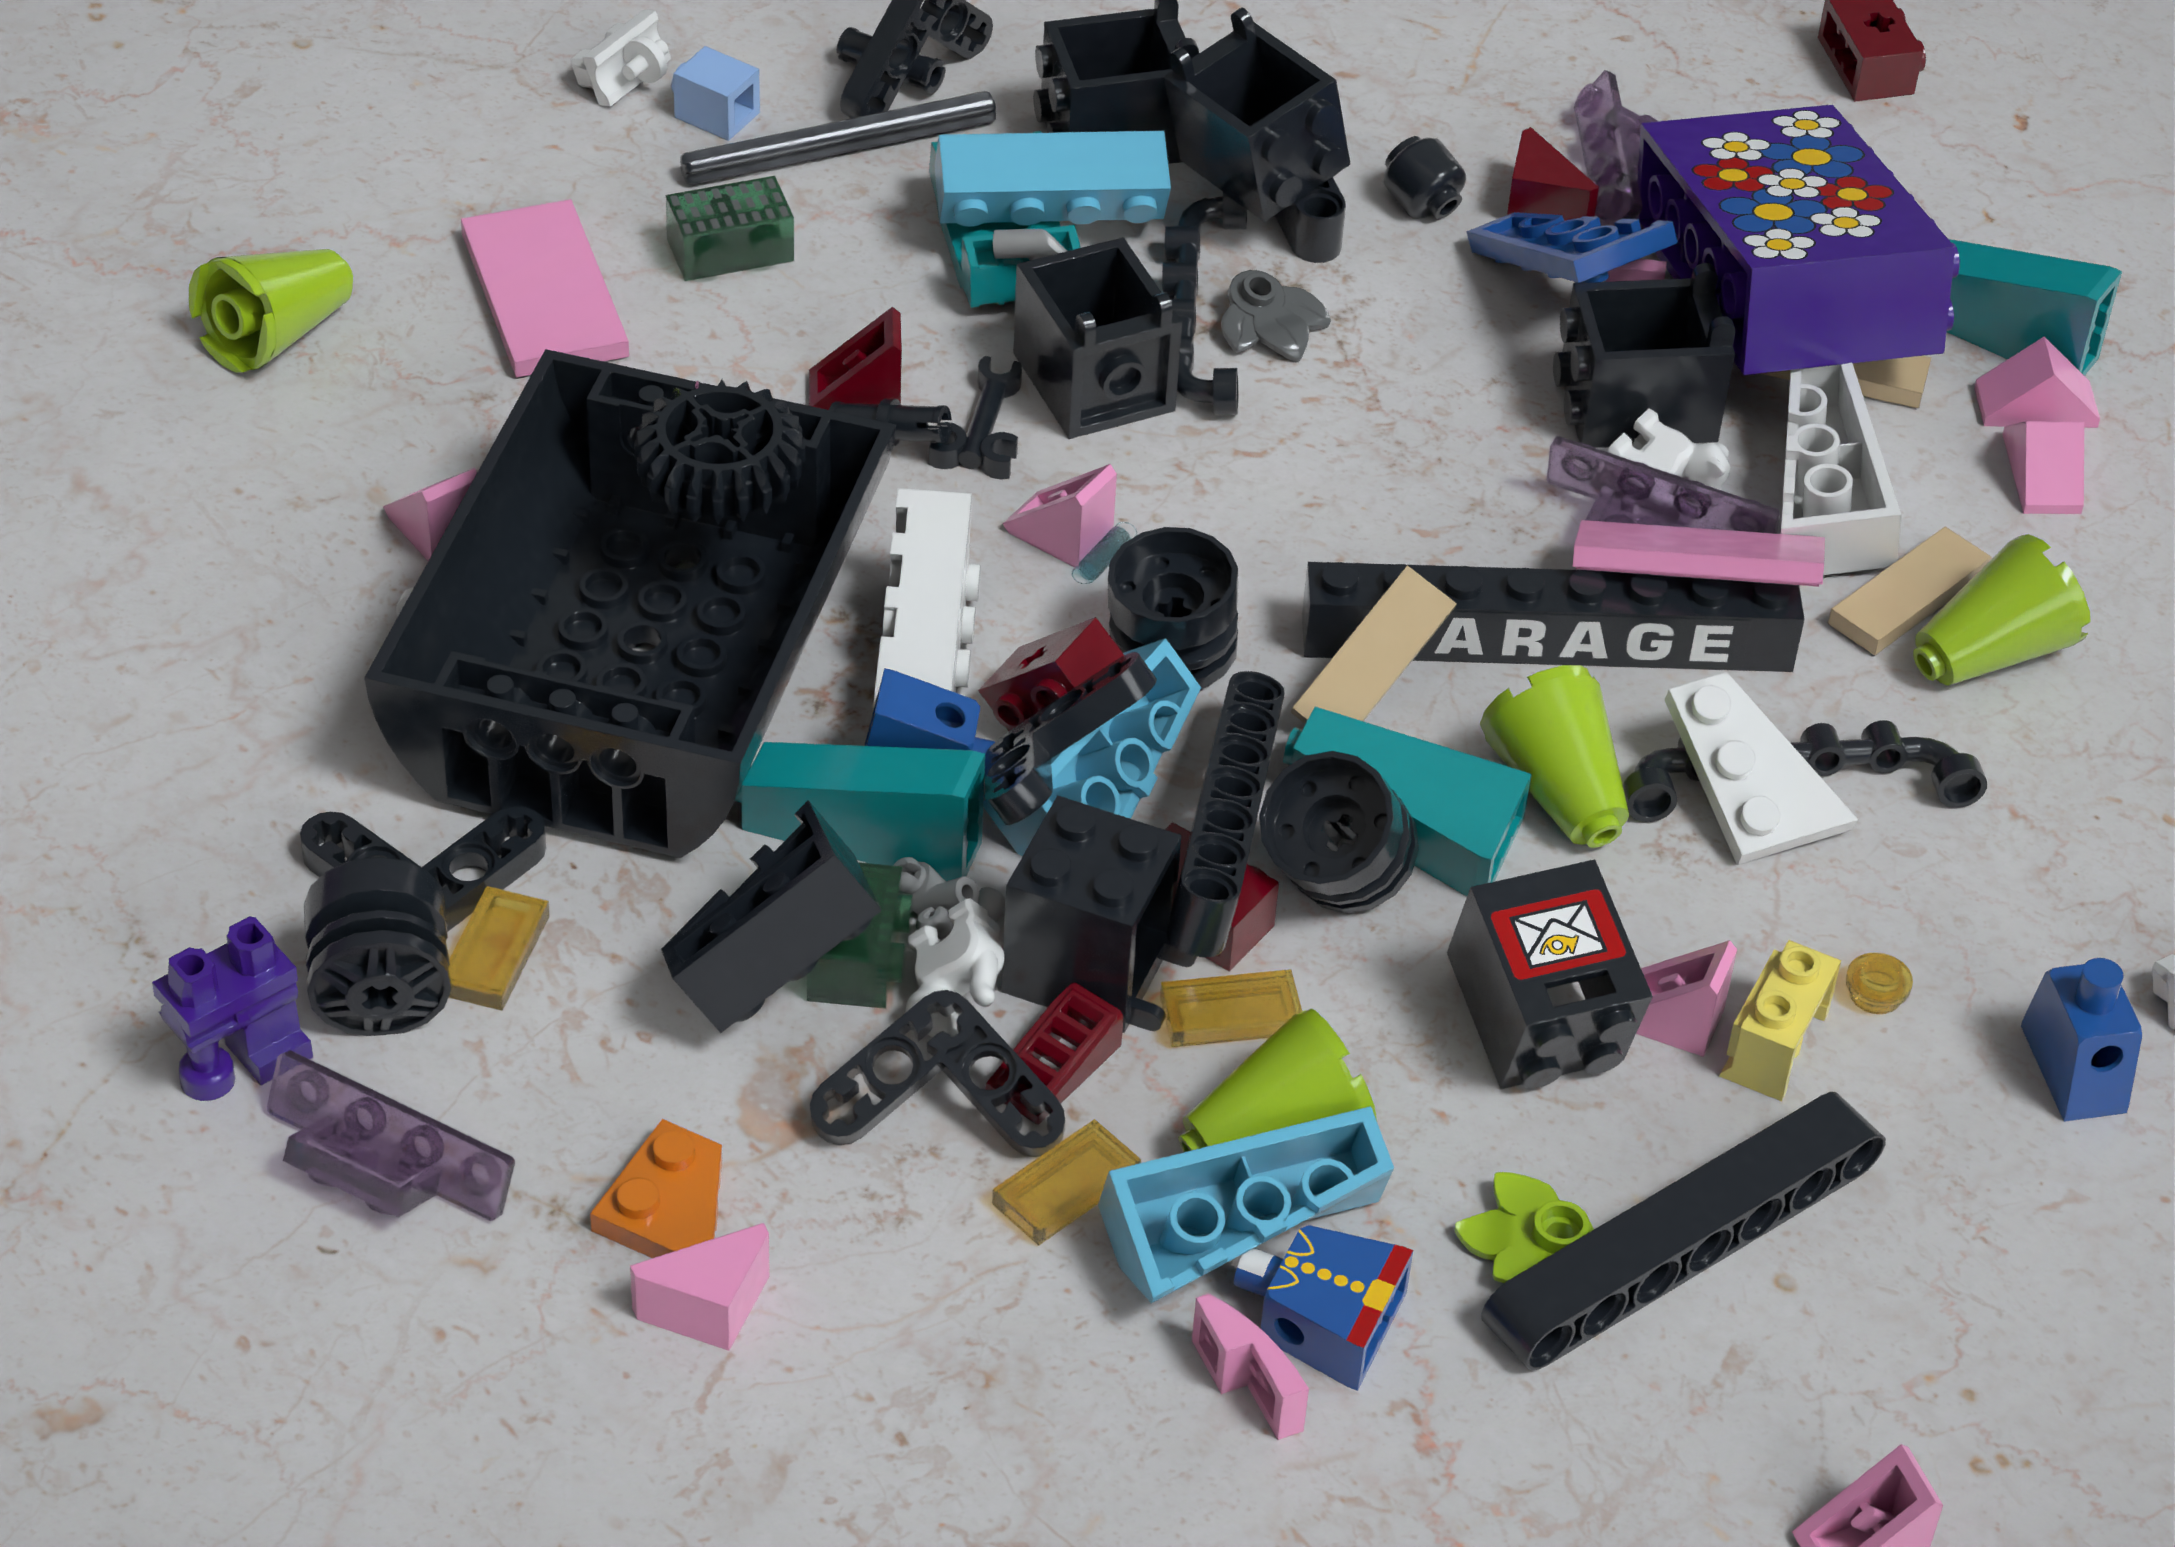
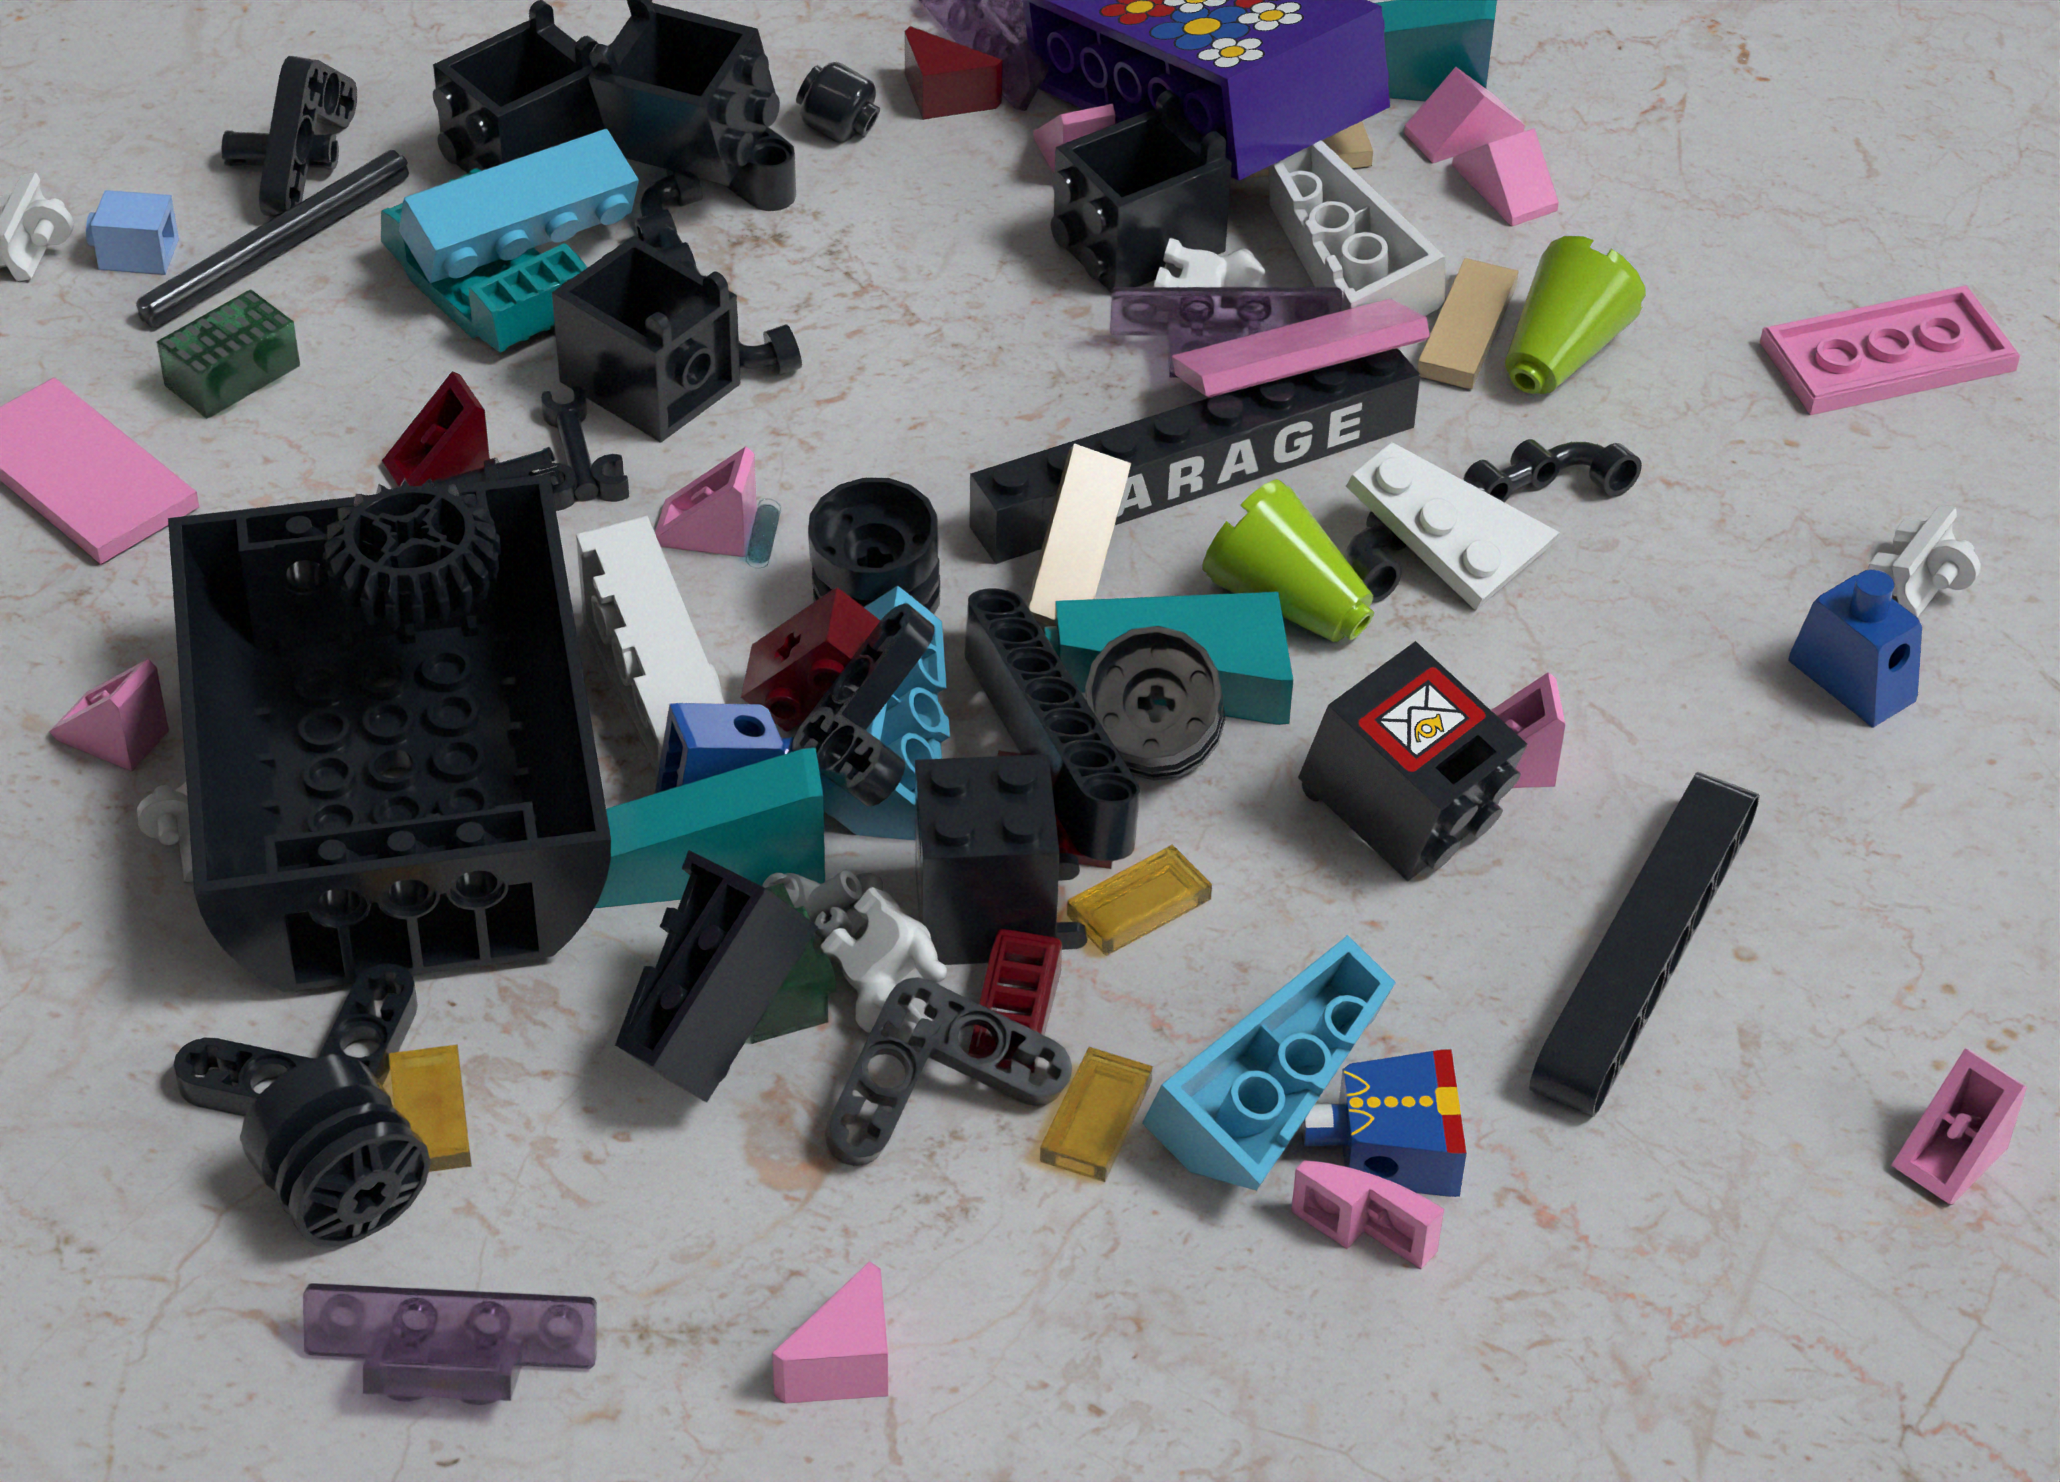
camera: 25 degrees left, 0 degrees up
(235, 994) = (236, 1266): dark purple hips -> none
(664, 1194) = (746, 1277): orange wing -> none
(1025, 244) = (545, 271): light grey arm -> none
(1275, 316) = (776, 267): dark grey plate -> none
(1281, 1084) = (1247, 953): lime cone -> none
(1522, 1226) = (1514, 994): lime plate -> none
(1570, 248) = (1015, 118): blue wing -> none
(1776, 1016) = (1610, 728): light yellow window -> none
(1878, 982) = (1659, 666): clear yellow plate -> none

